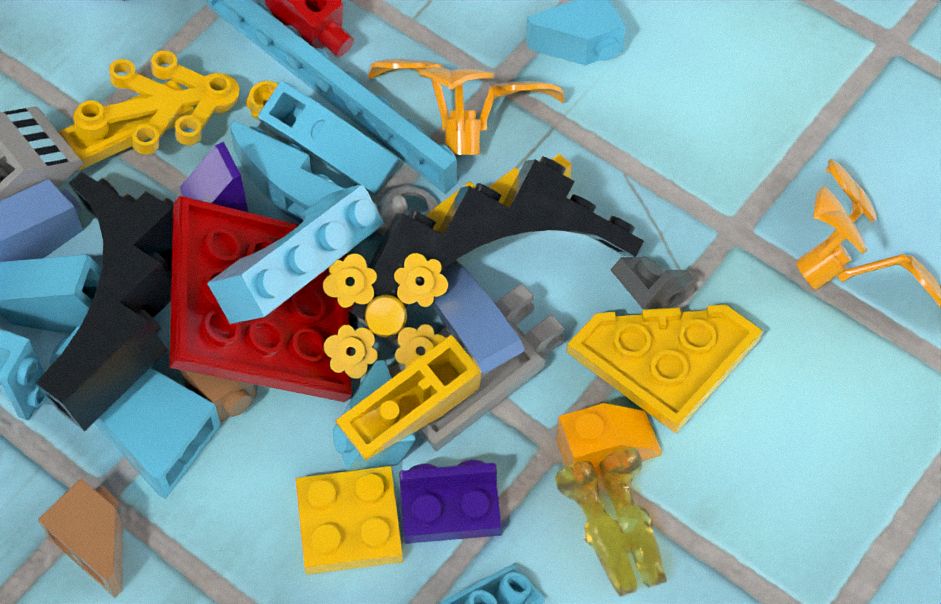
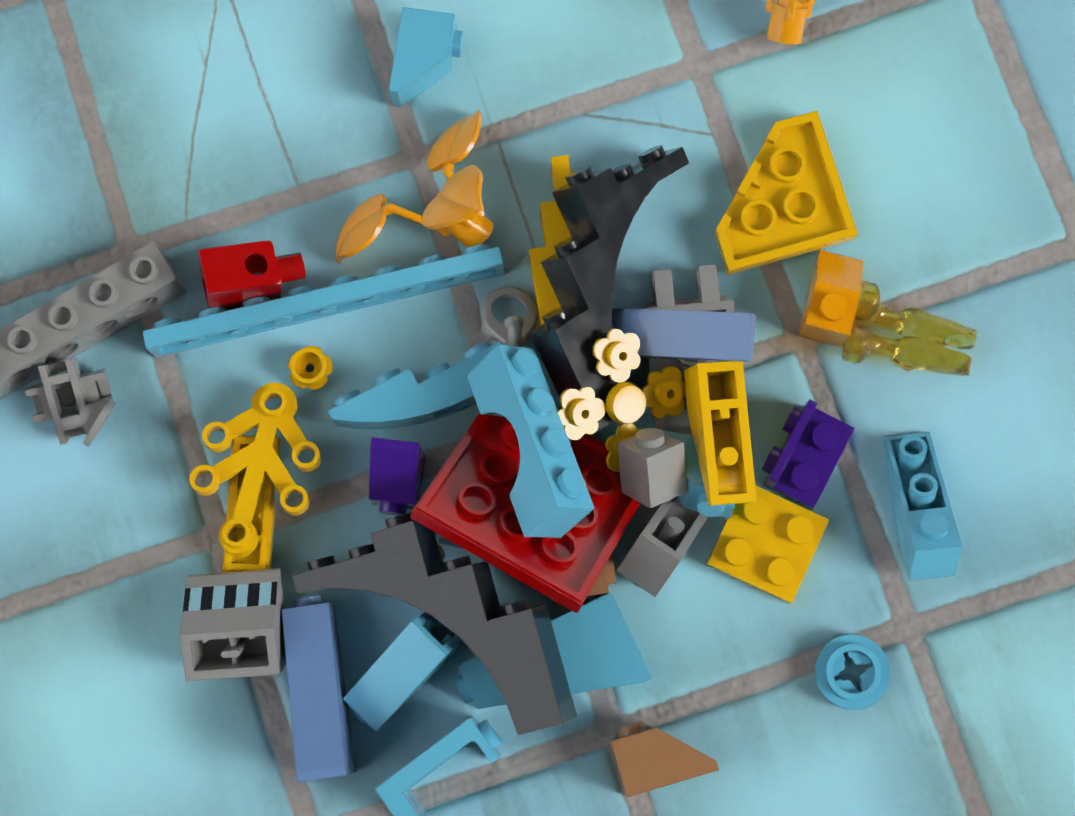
camera: 55 degrees left, 20 degrees up
(286, 429) = (661, 546): none -> light grey slope
(327, 137) = (395, 340): medium azure slope -> none
(344, 366) = (652, 467): none -> light grey brick
(649, 283) = (715, 170): dark grey bracket -> none

